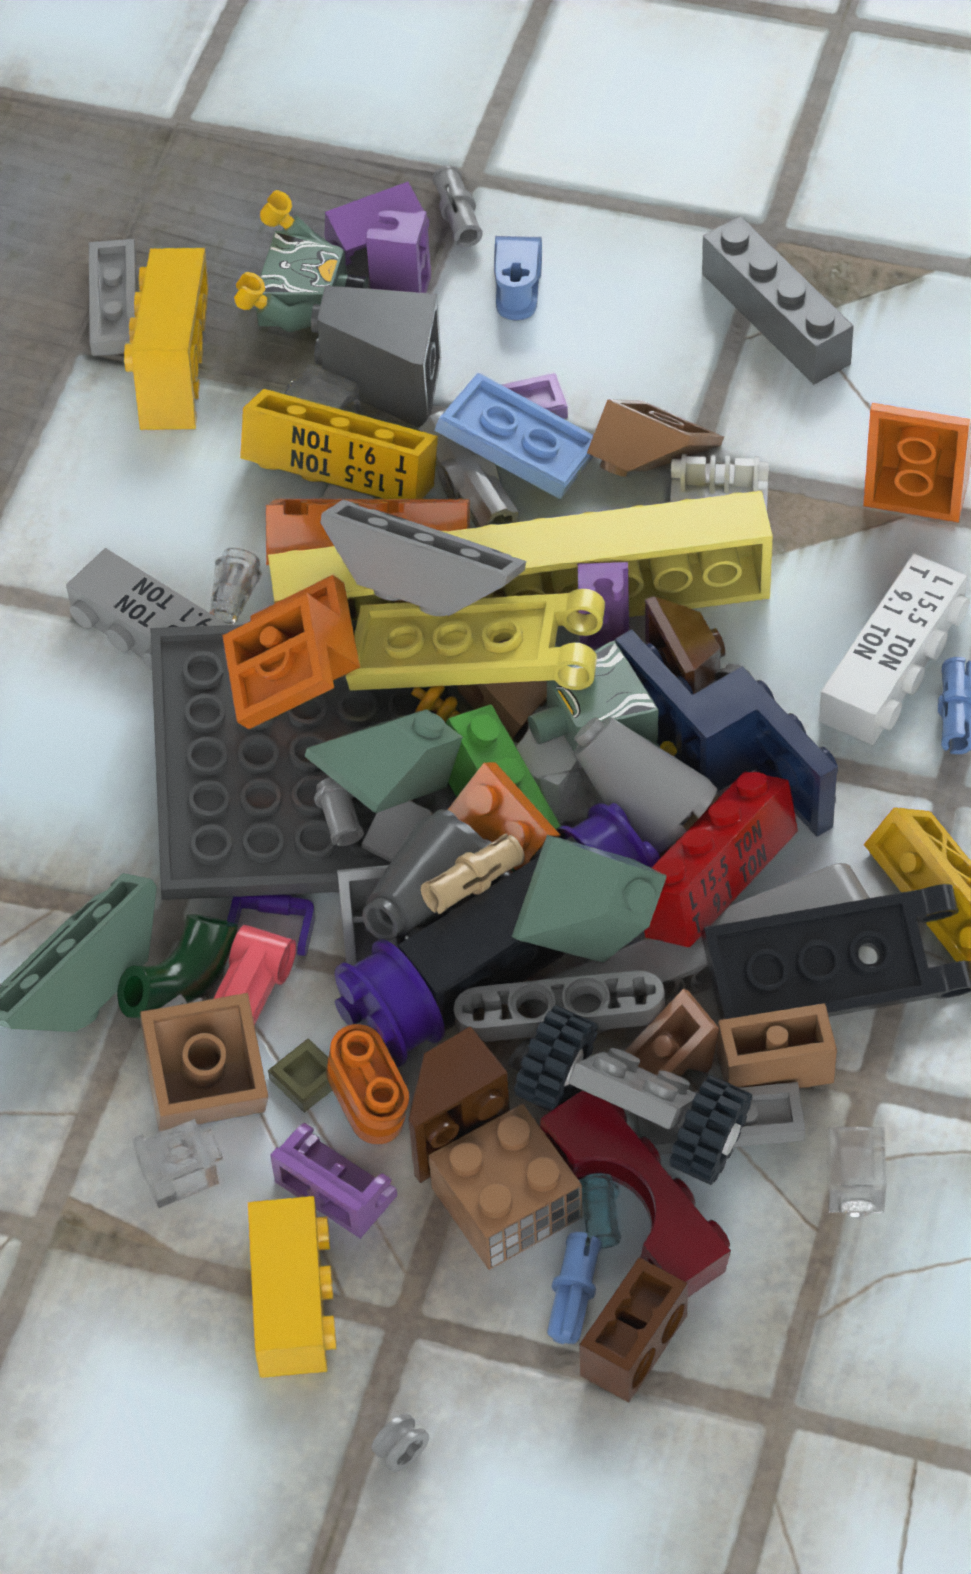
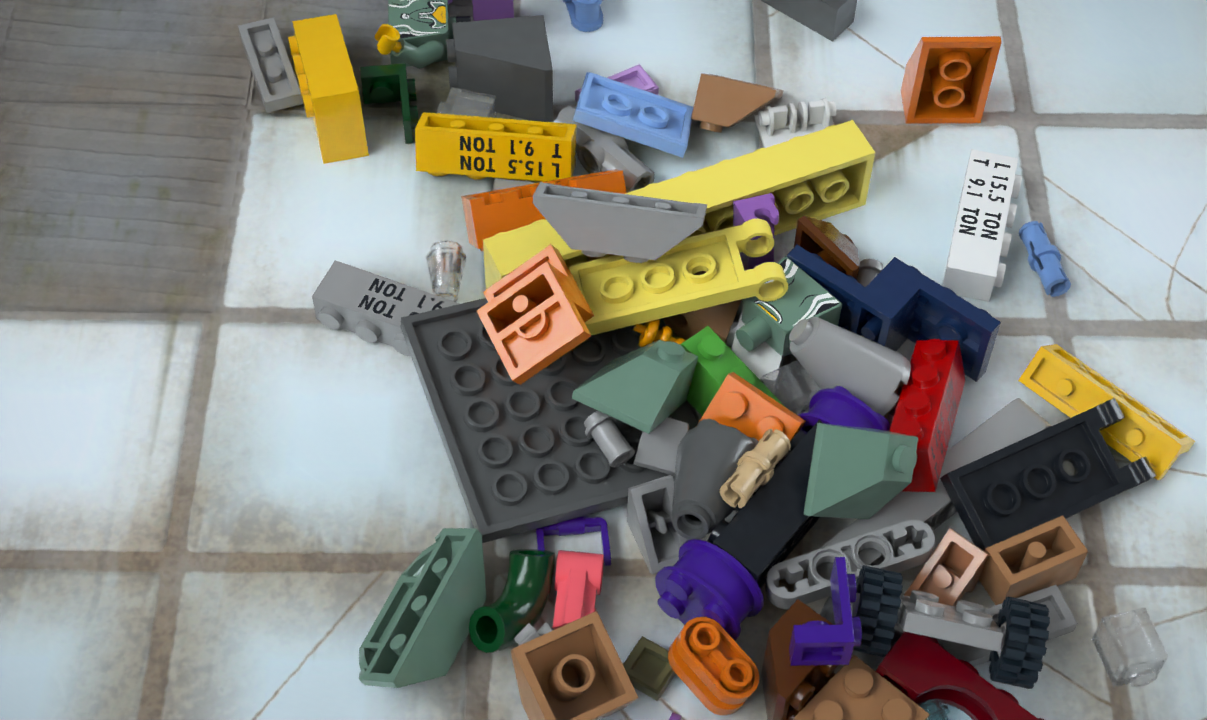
camera: 20 degrees left, 0 degrees up
(245, 347) = (391, 84): none -> dark green bracket
(480, 1078) = (824, 643): none -> dark purple bracket

